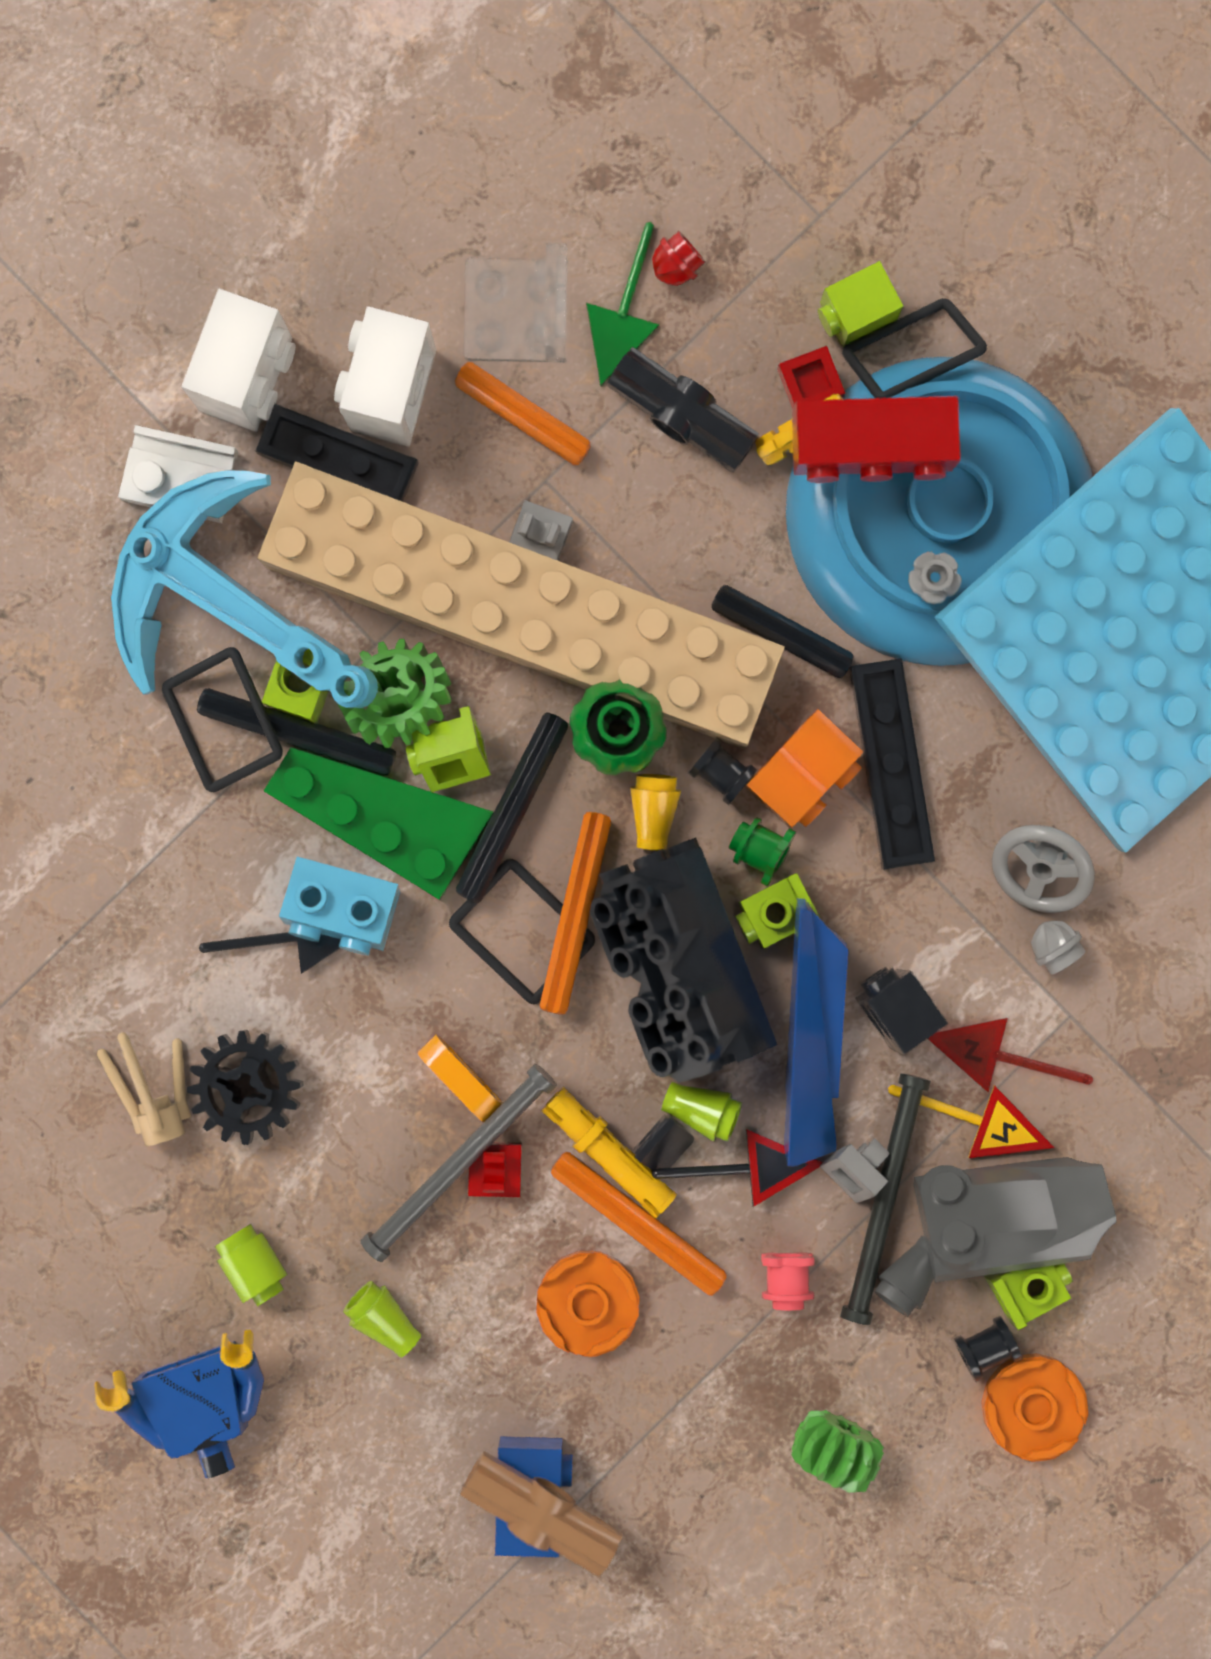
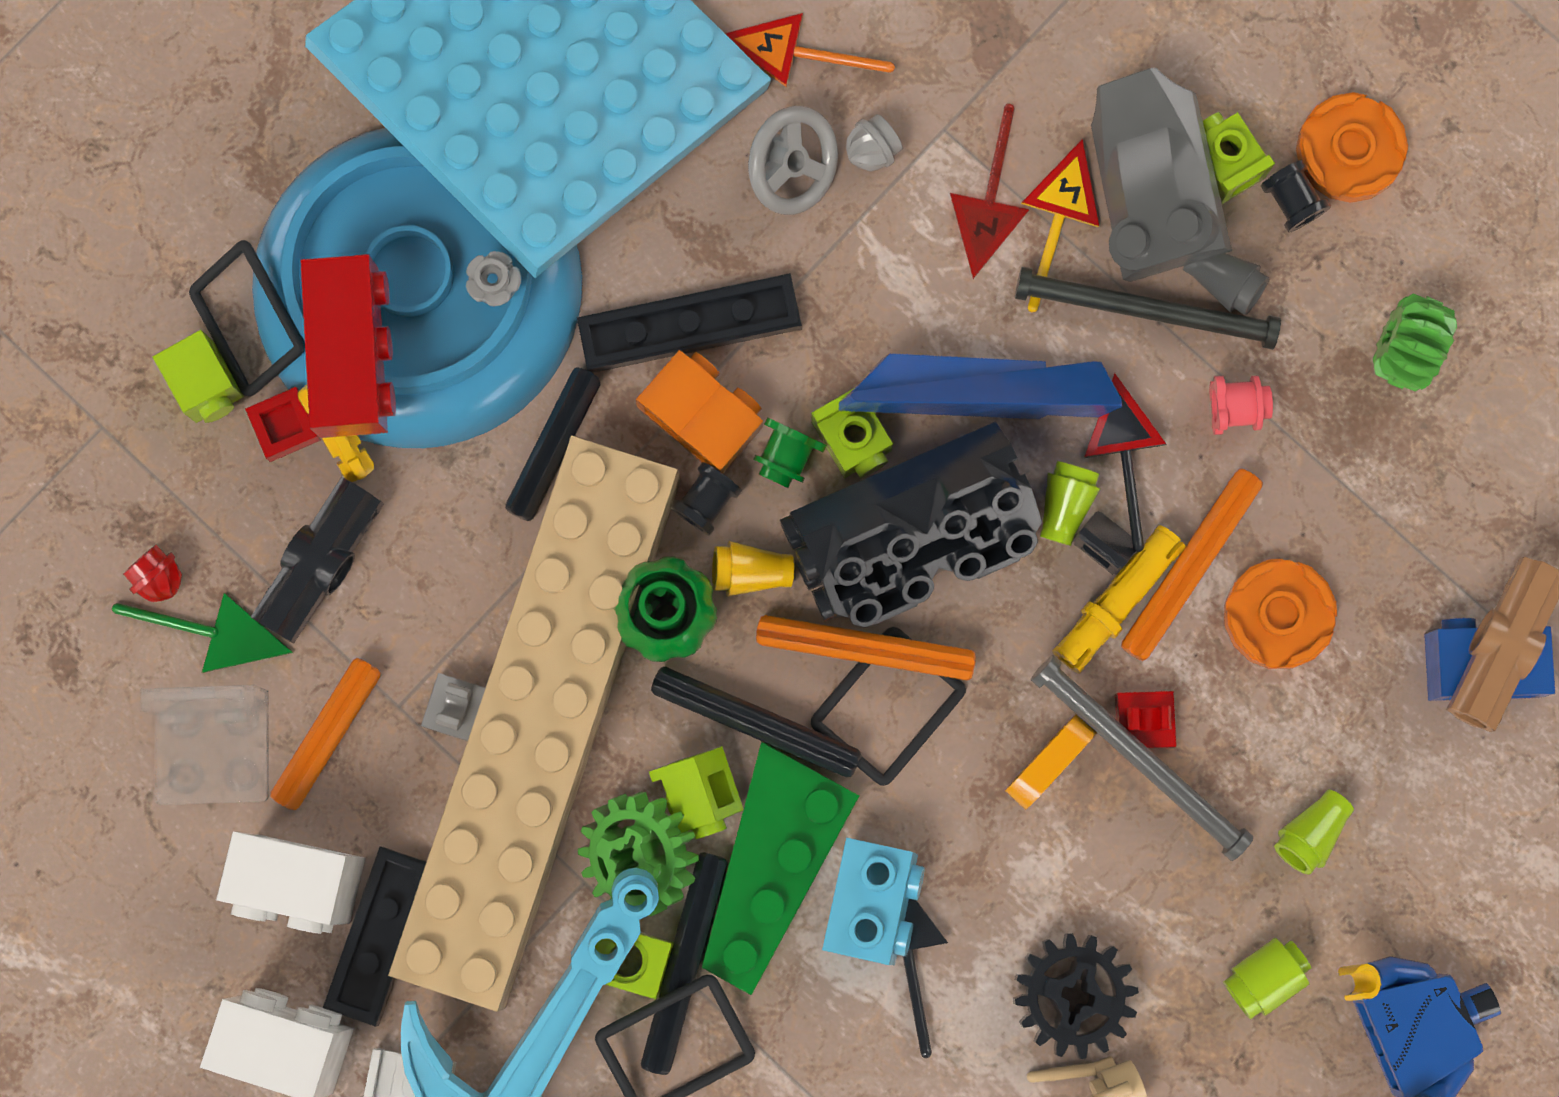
camera: 85 degrees left, 5 degrees down
(856, 1169) = (1119, 338): light grey tile -> none
(900, 1008) = (949, 298): black brick -> none
(1159, 857) = (774, 46): none -> piece

